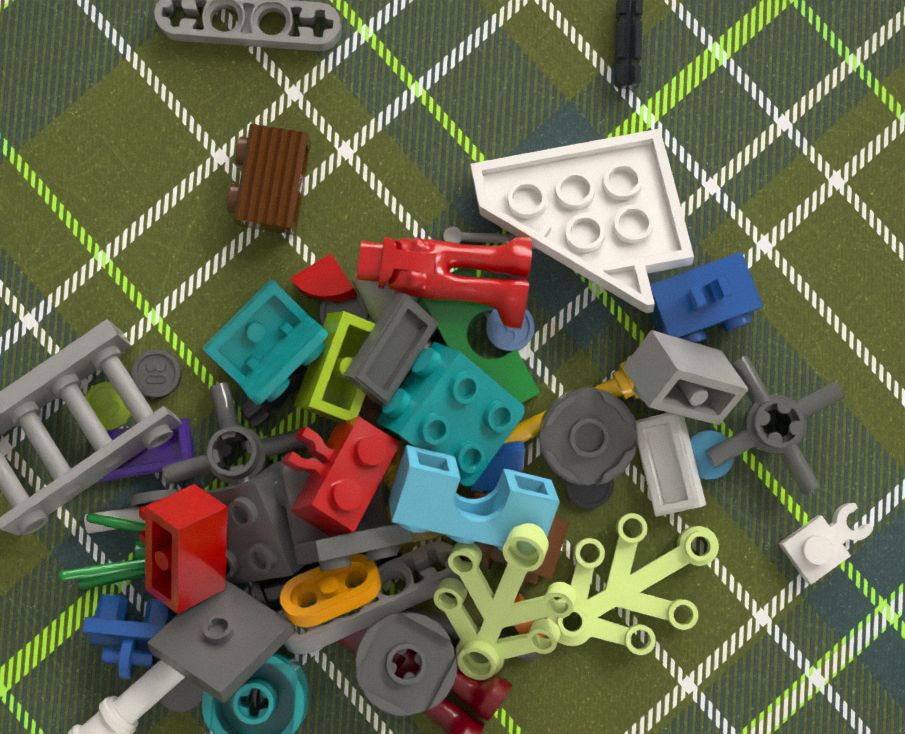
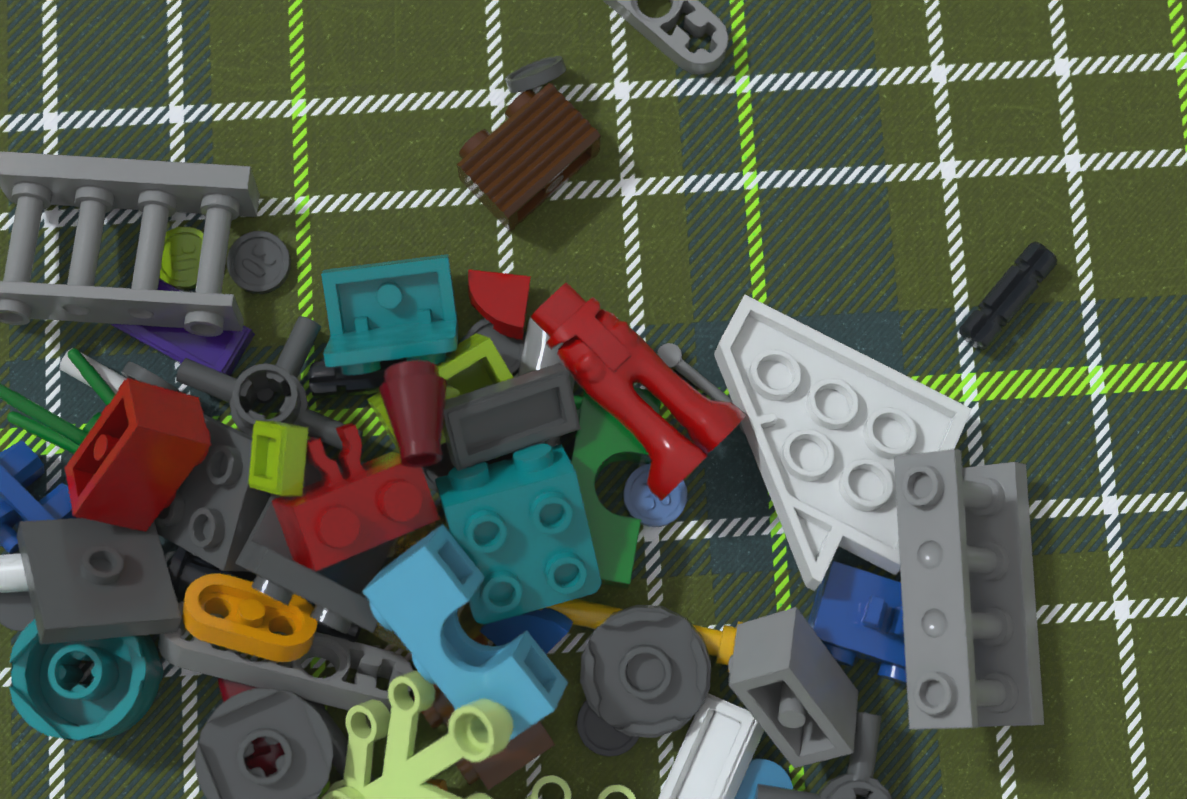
camera: 35 degrees right, 5 degrees down
(235, 124) = (535, 74): none -> dark grey piece
(275, 482) = (278, 458): none -> lime tile
(336, 389) = (415, 407): none -> dark red cone
(743, 242) = (967, 593): none -> light grey fence

